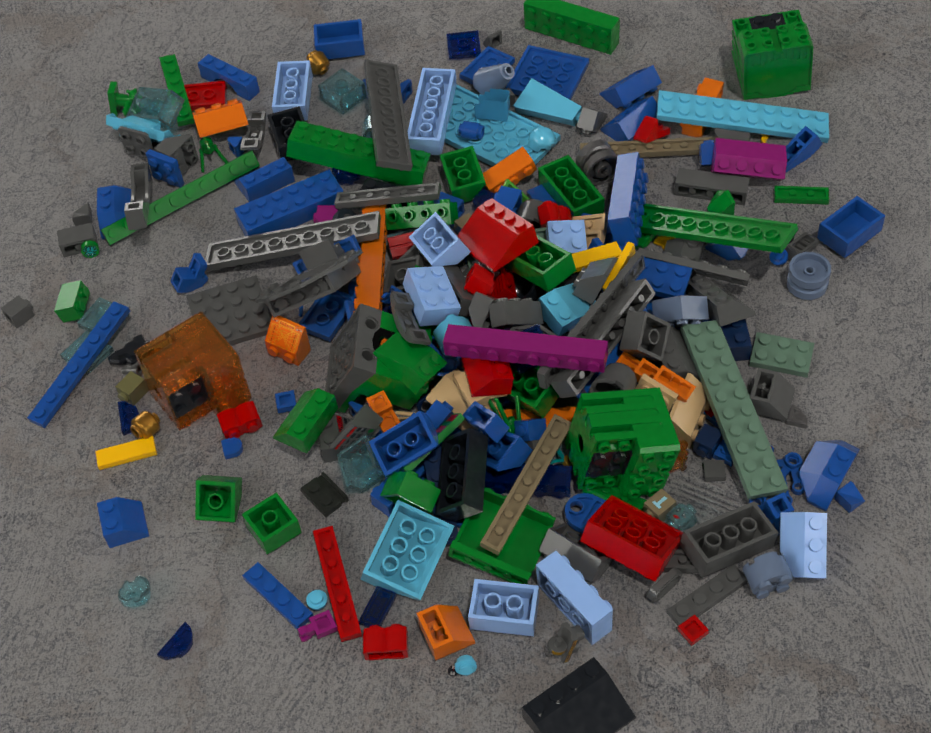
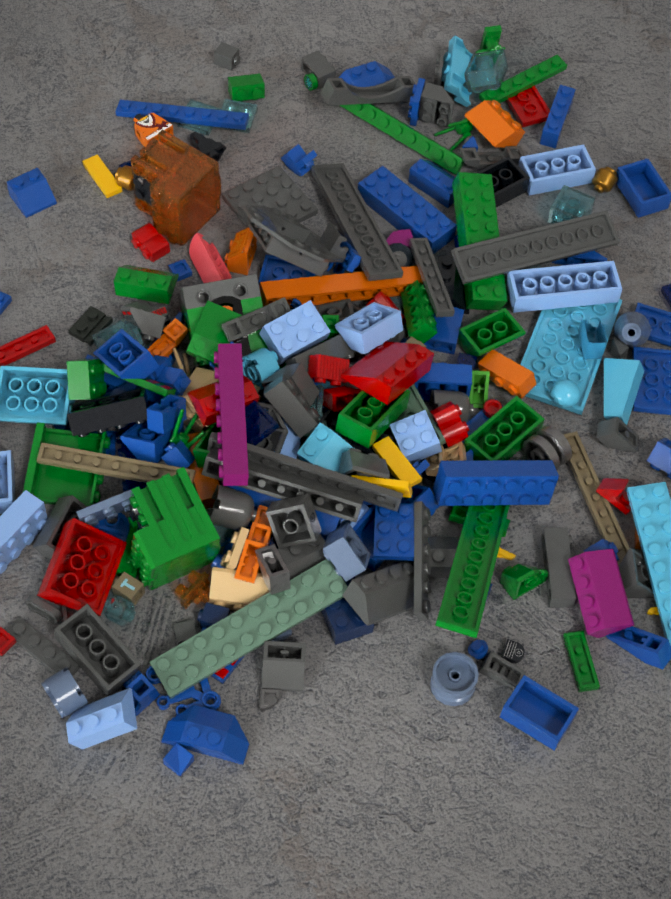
camera: 65 degrees right, 5 degrees up
(82, 215) = (347, 63): dark grey slope -> none
(86, 395) = (149, 126): none -> torso
(218, 498) = (68, 249): green slope -> none
(232, 447) = (123, 246): blue tile -> none
(271, 523) = (46, 292): green brick -> none
(290, 375) = (207, 260): none -> coral brick
(471, 130) = (552, 328): blue brick -> none
(538, 192) = (491, 407): none -> red tile
(577, 495) = (105, 509): none -> sand blue plate
(628, 121) = (621, 466): blue slope -> none
(690, 363) = (273, 569): none -> flat silver slope
(782, 354) = (347, 673): sand green plate -> none

